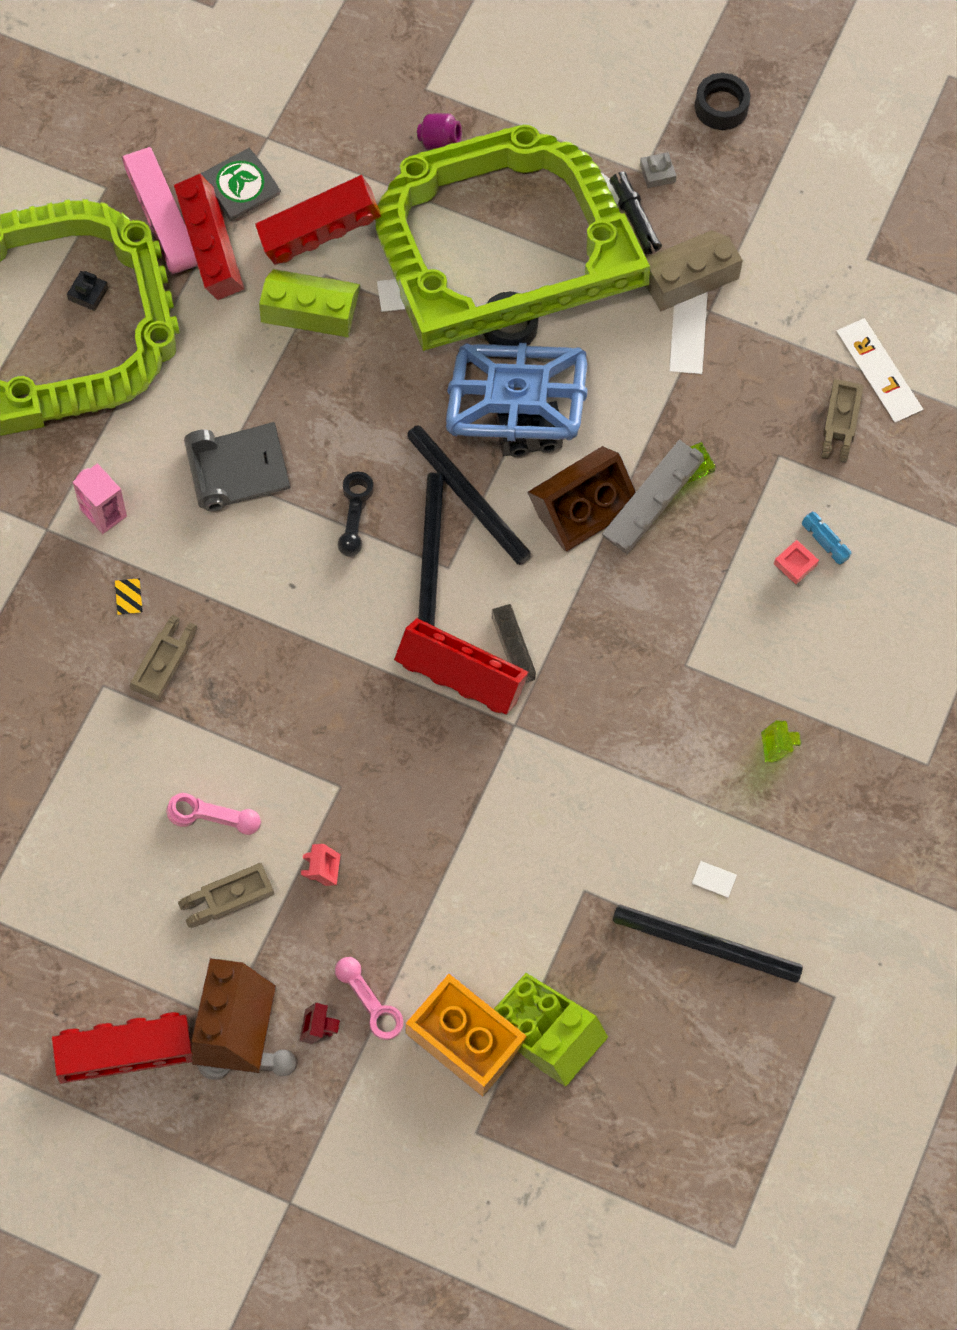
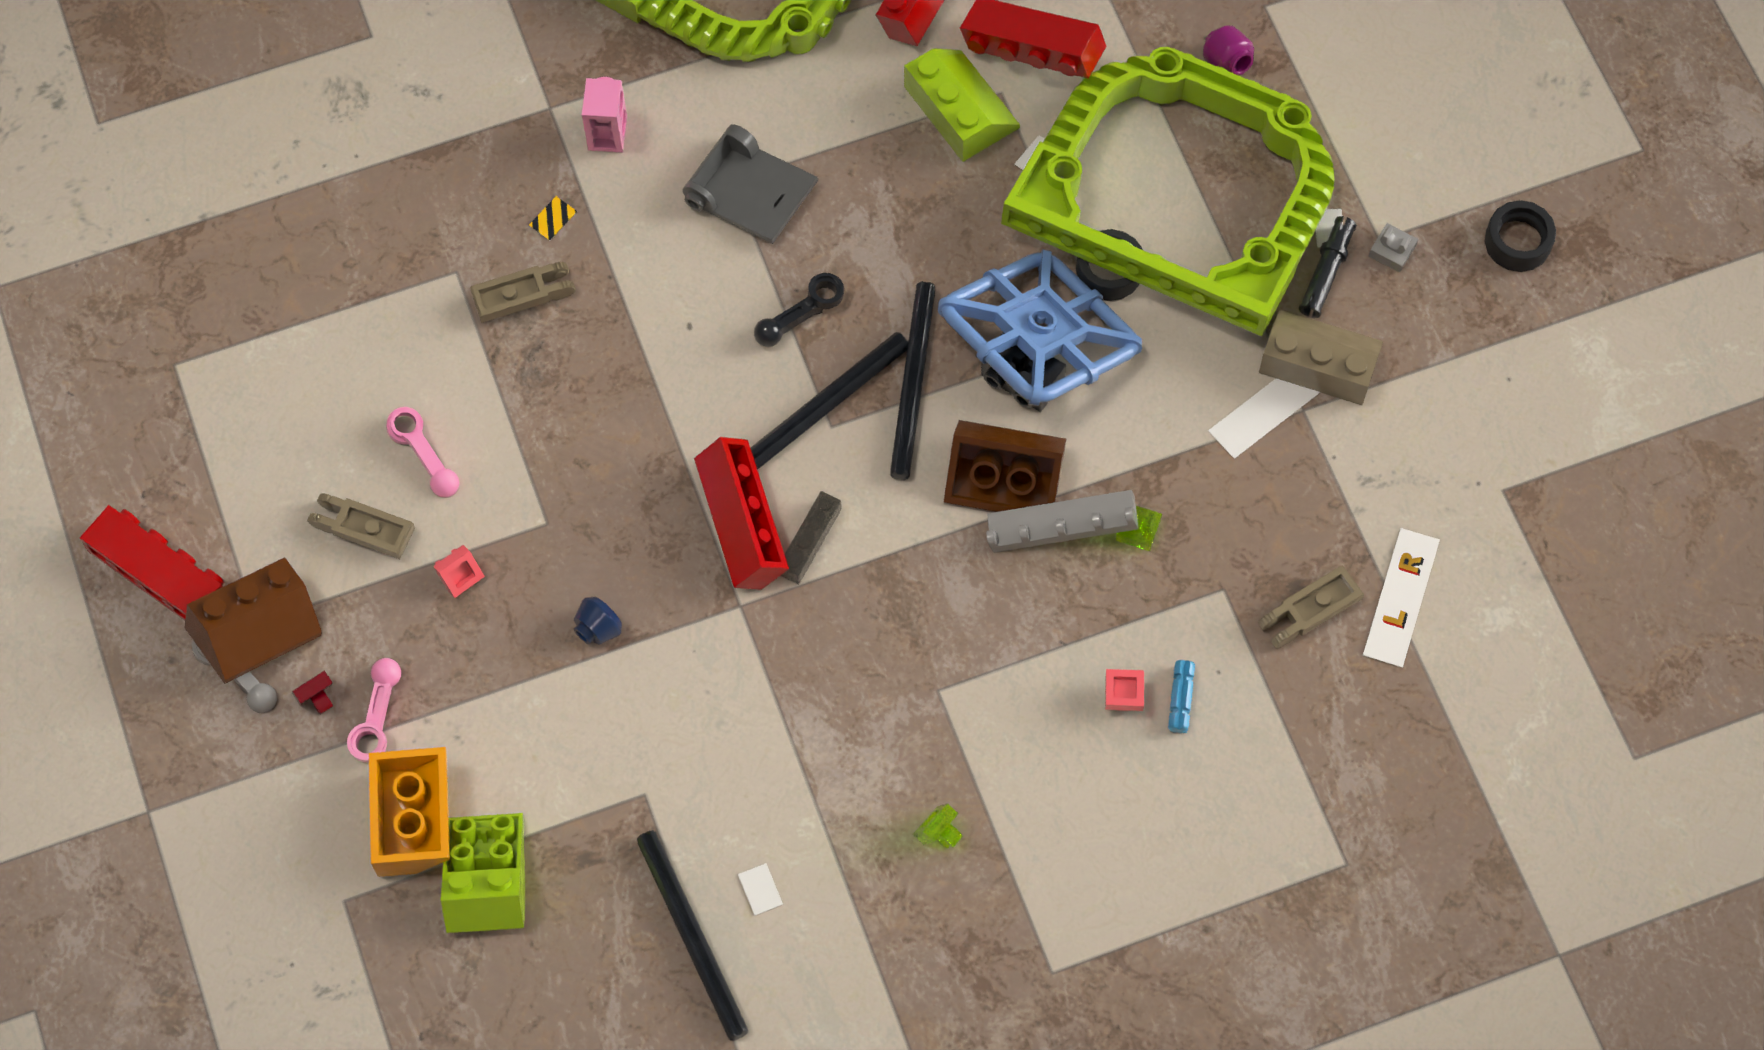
camera: 50 degrees right, 0 degrees up
(444, 813) = (596, 621): none -> dark blue cone

